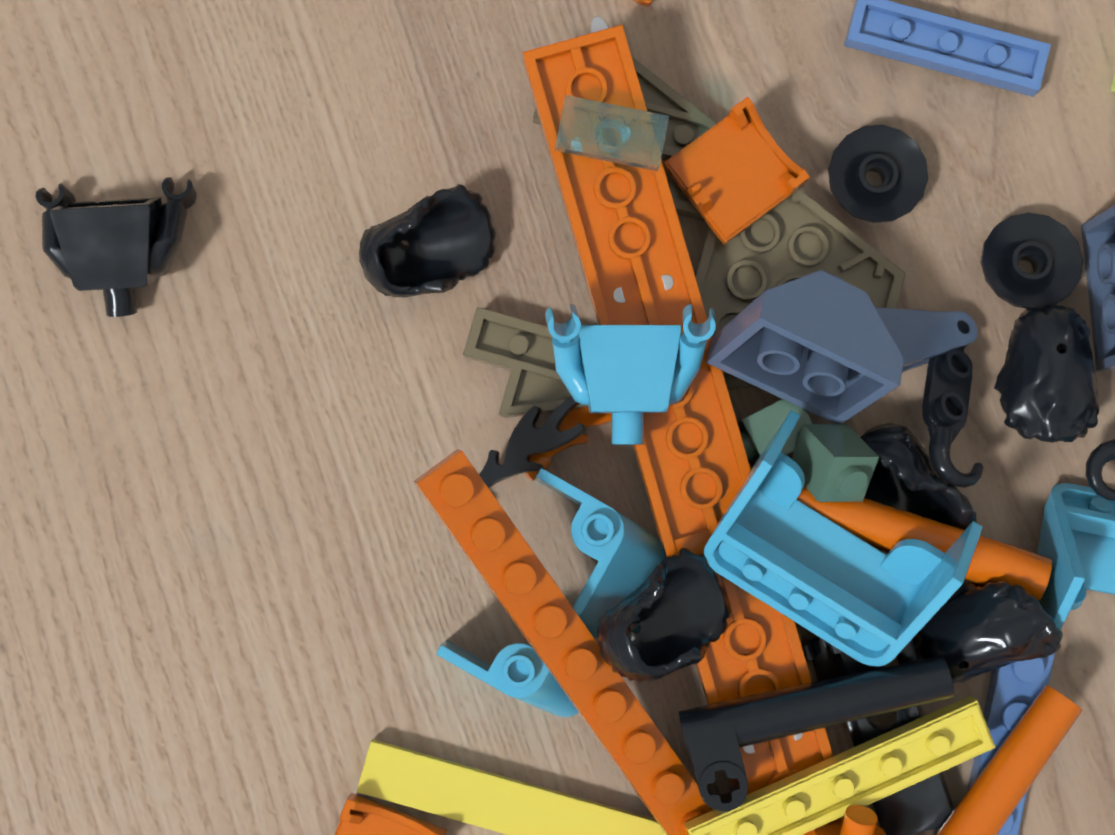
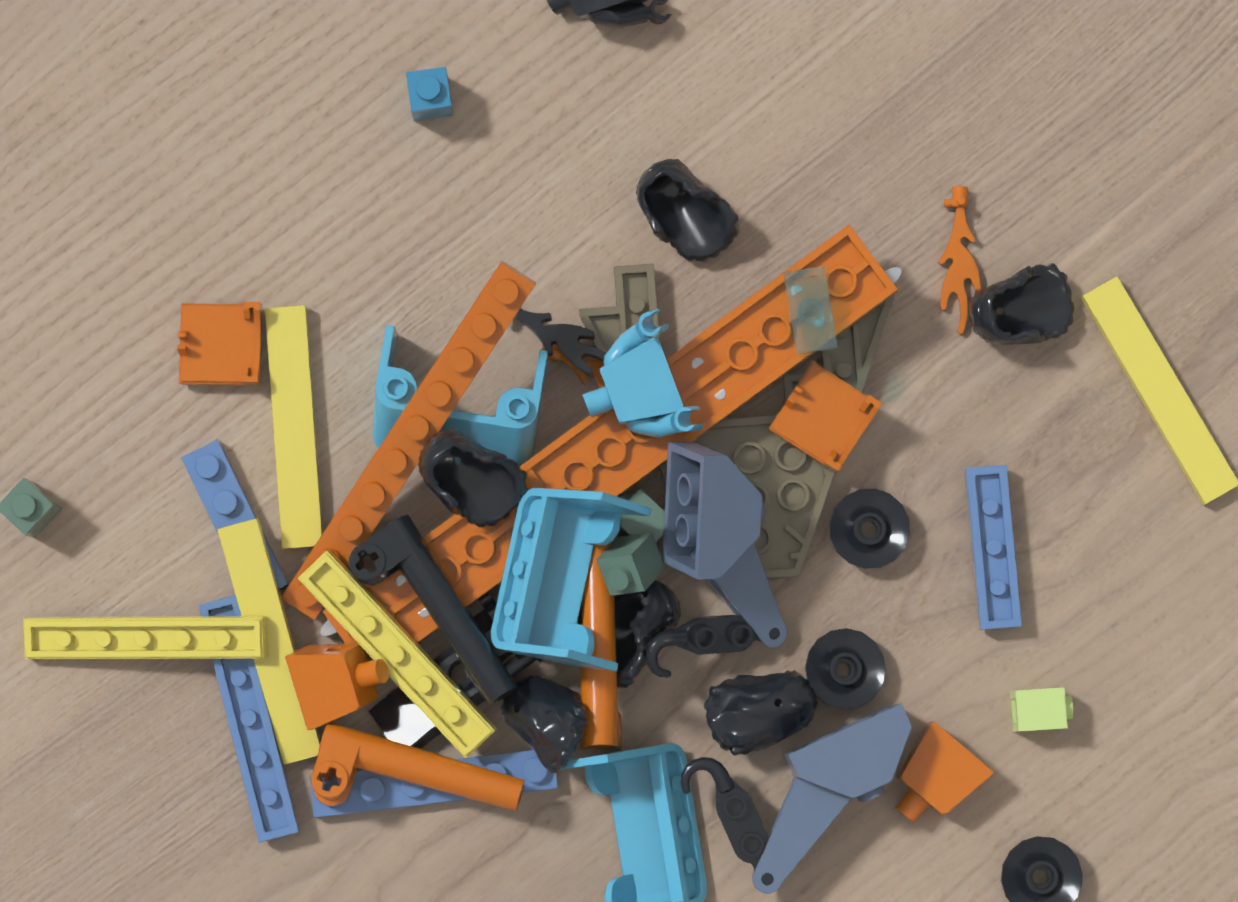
camera: 70 degrees right, 0 degrees up
(171, 497) = (429, 94): none -> dark azure brick

